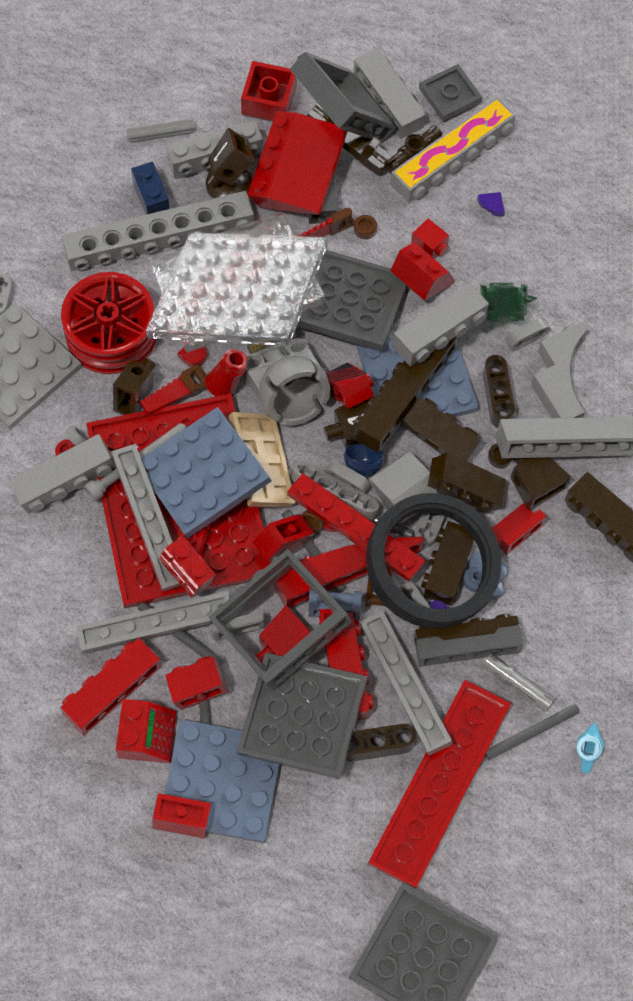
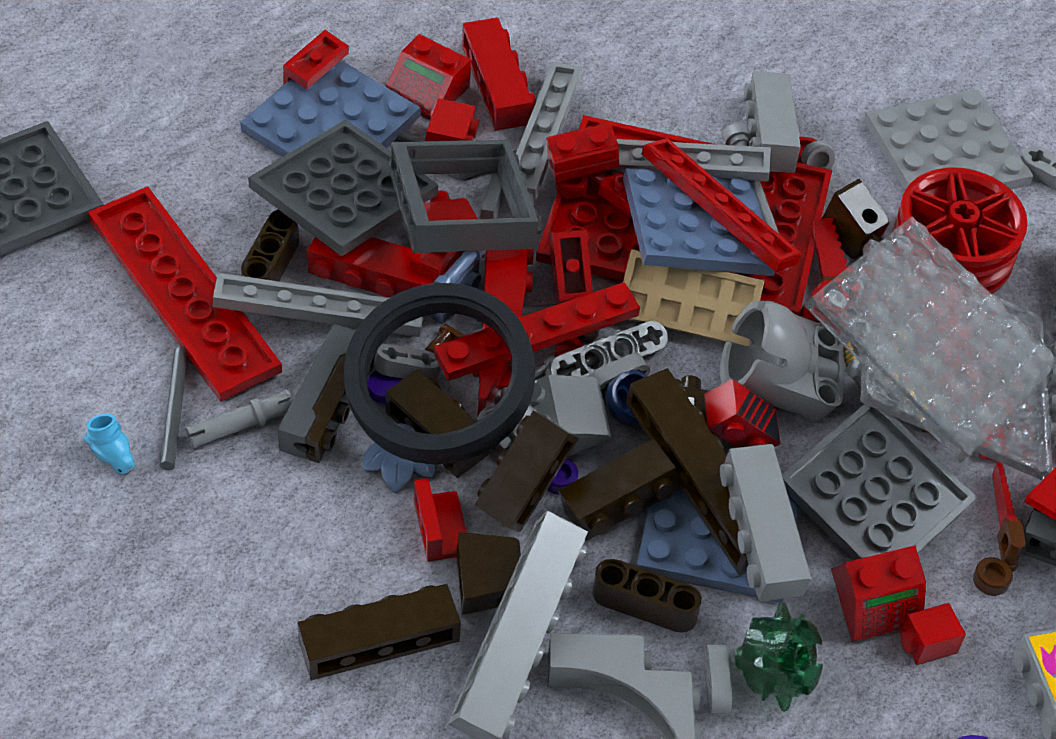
camera: 115 degrees right, 15 degrees down
(186, 460) = (721, 205): none -> red tile

